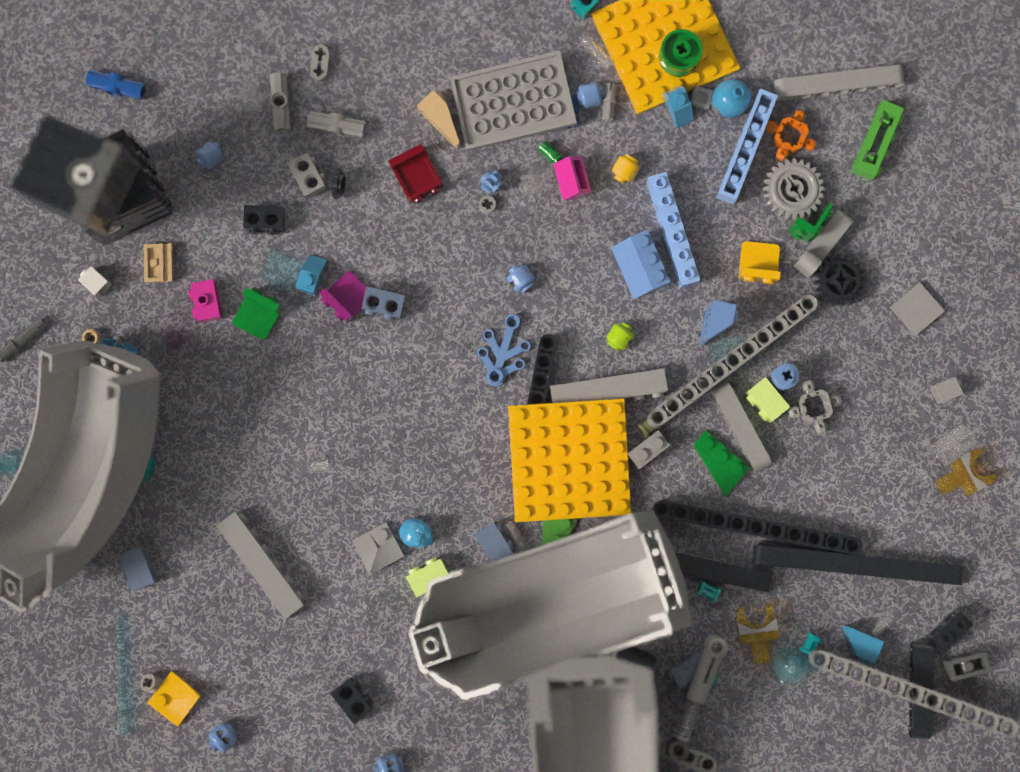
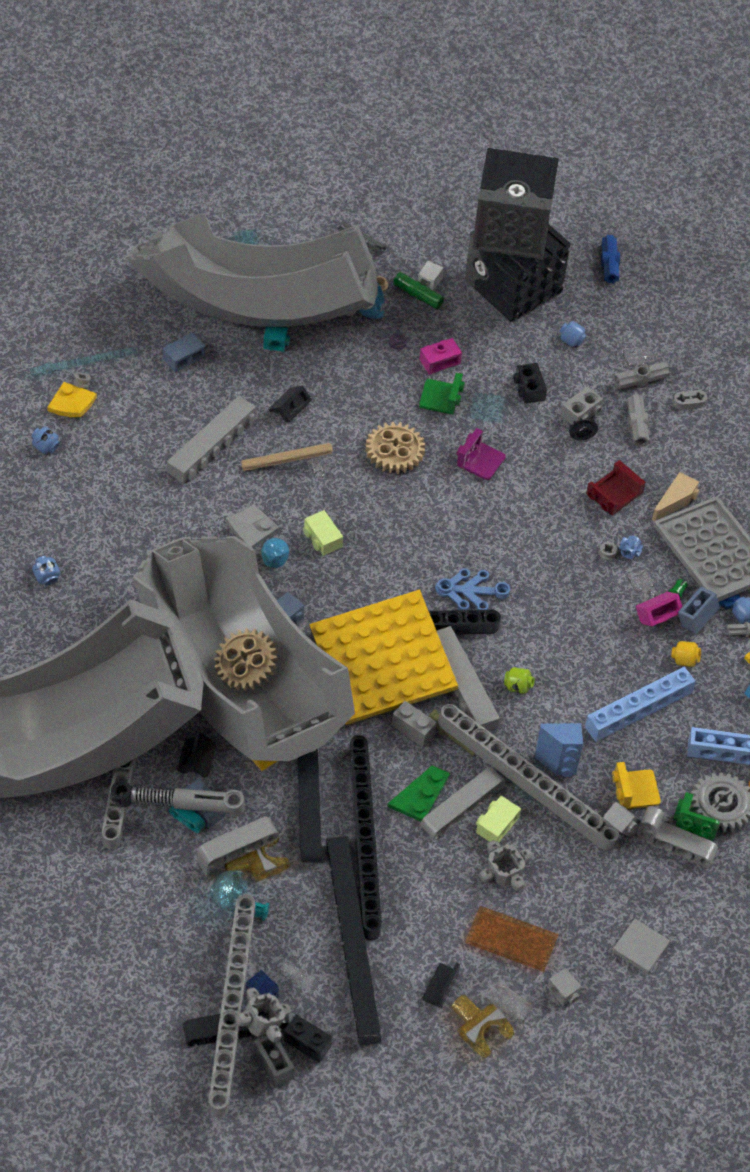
camera: 70 degrees right, 30 degrees down
(110, 299) = (418, 290): none -> green axle
(158, 263) = (462, 317): tan plate -> none
(230, 472) = (291, 403): none -> black panel
(304, 494) = (287, 456): none -> tan axle
(311, 275) = (492, 425): dark azure slope -> none
(330, 387) = (395, 447): none -> tan gear
(347, 704) = (103, 530): black brick -> none
(383, 299) = (486, 482): sand blue brick -> none
(405, 480) = (323, 533): none -> yellowish green brick
(521, 278) = (546, 589): medium blue head -> none
(566, 590) = (238, 645): none -> tan gear
(583, 141) = (698, 610): none -> sand blue brick
(640, 265) = (597, 686): medium blue slope -> none
(709, 591) = (291, 805): teal bush -> none
(750, 650) = (234, 844): none -> light grey beam
(791, 375) = (526, 824): medium blue piece -> none
(799, 287) = (623, 819): none -> light grey brick
(848, 279) = (641, 869): black gear -> none
(863, 645) = (270, 957): dark azure slope -> none
(885, 421) = (512, 938): none -> clear orange tile
(892, 659) = (263, 984): none -> clear blue brick
(919, 497) = (441, 984): none -> black panel
(939, 682) = (258, 1025): none -> light grey piece

